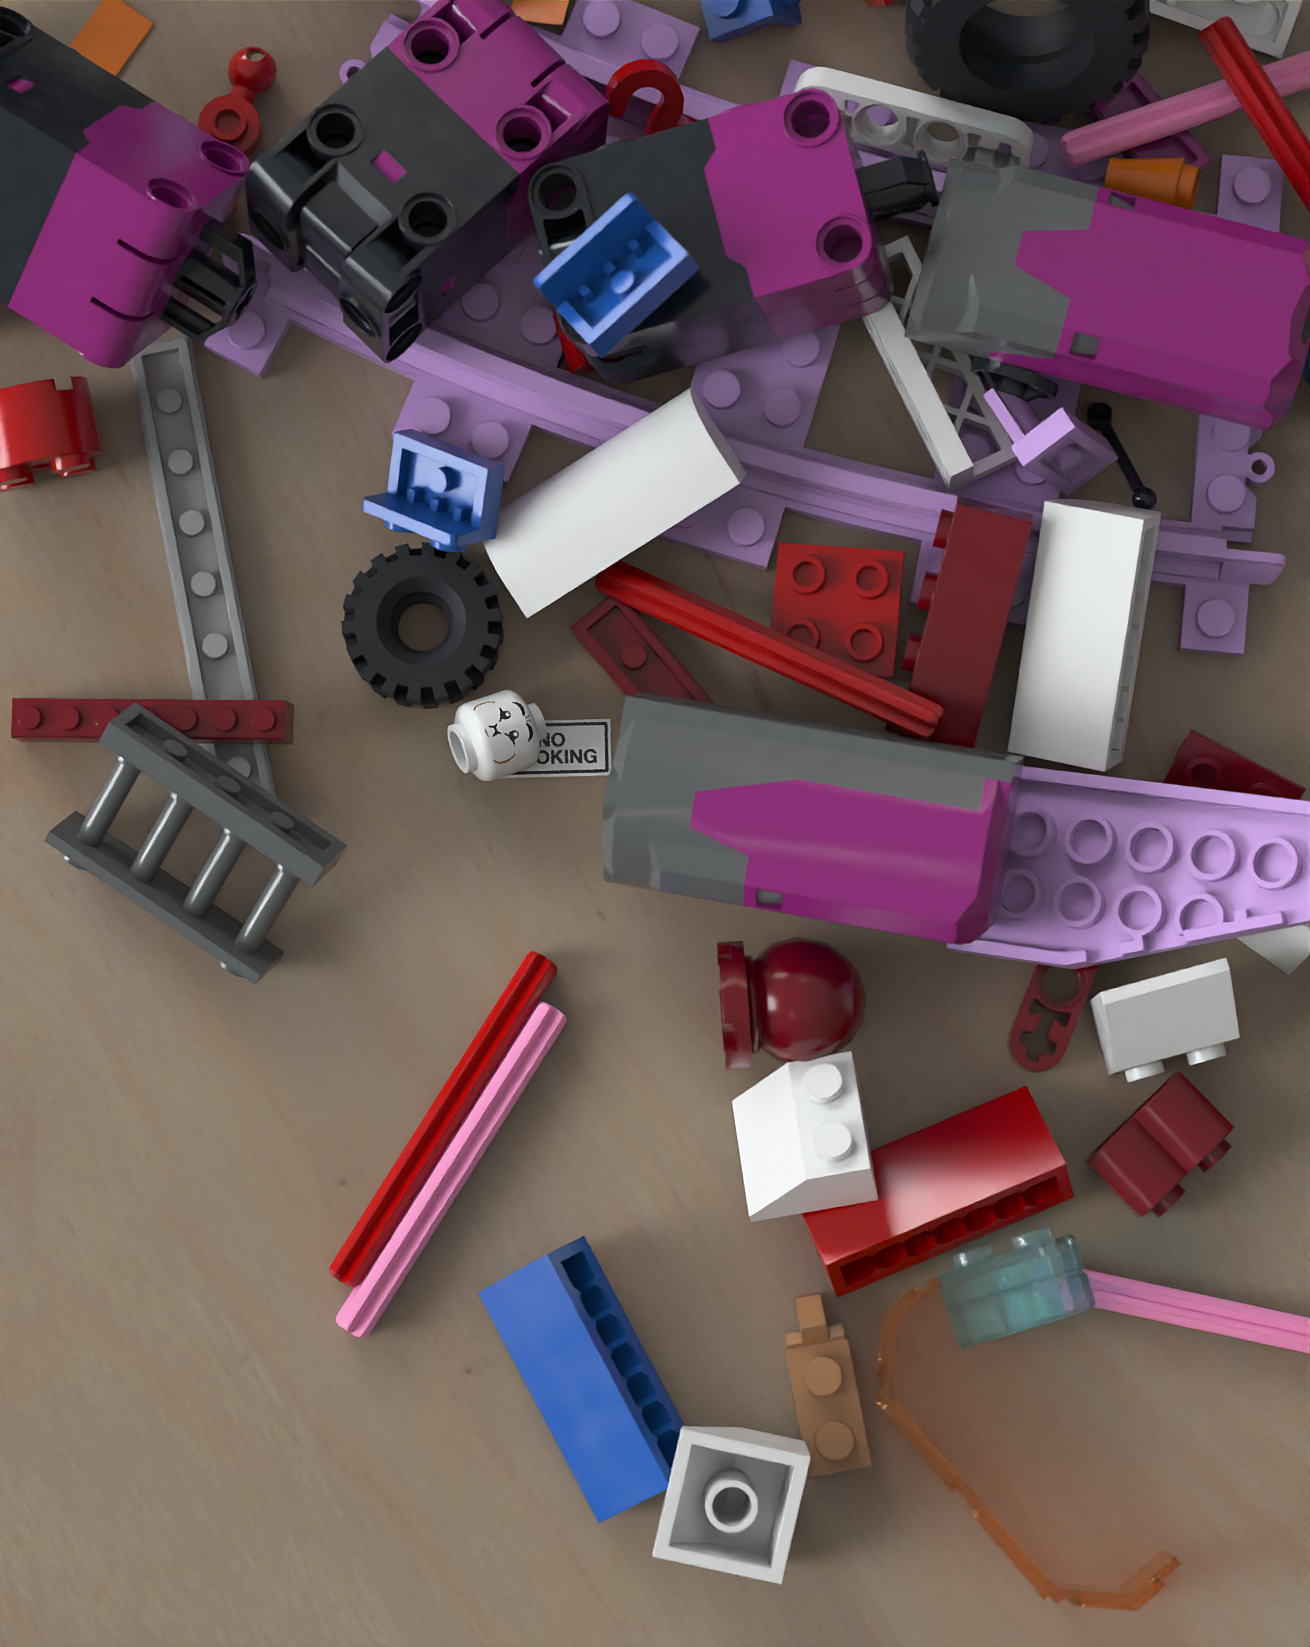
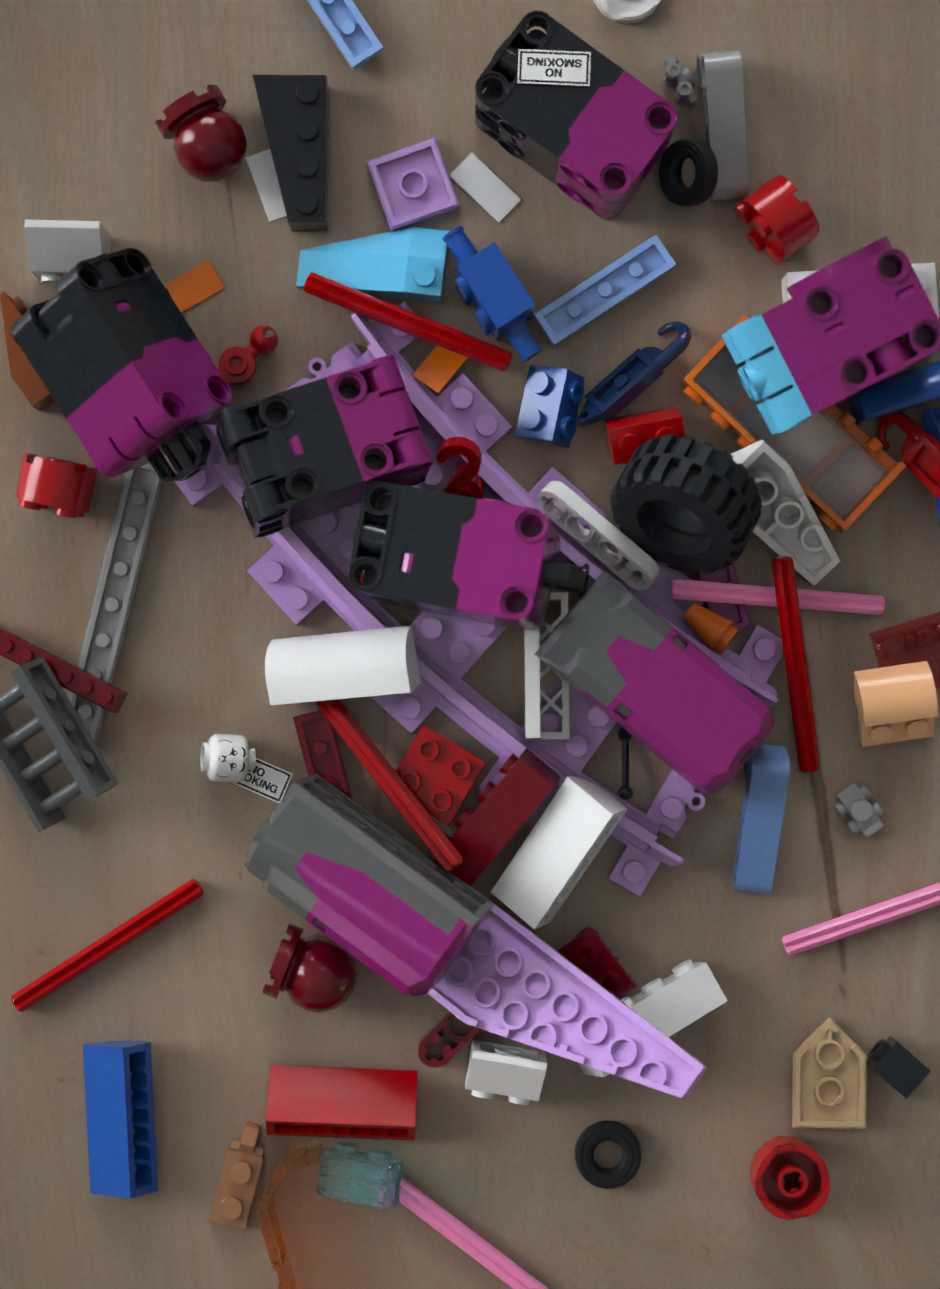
camera: 20 degrees right, 5 degrees up
(412, 579) = (187, 686): black tyre -> none
(439, 492) = (254, 617): blue bracket -> none
(451, 1171) = (99, 974): bright pink axle -> none
(615, 274) = (386, 563): blue bracket -> none
(733, 1501) = (161, 1219): white slope -> none
(805, 1139) = (287, 1048): white slope -> none
(1059, 448) = (586, 752): lavender piece -> none
(1160, 1145) = (472, 1135): dark red brick -> none

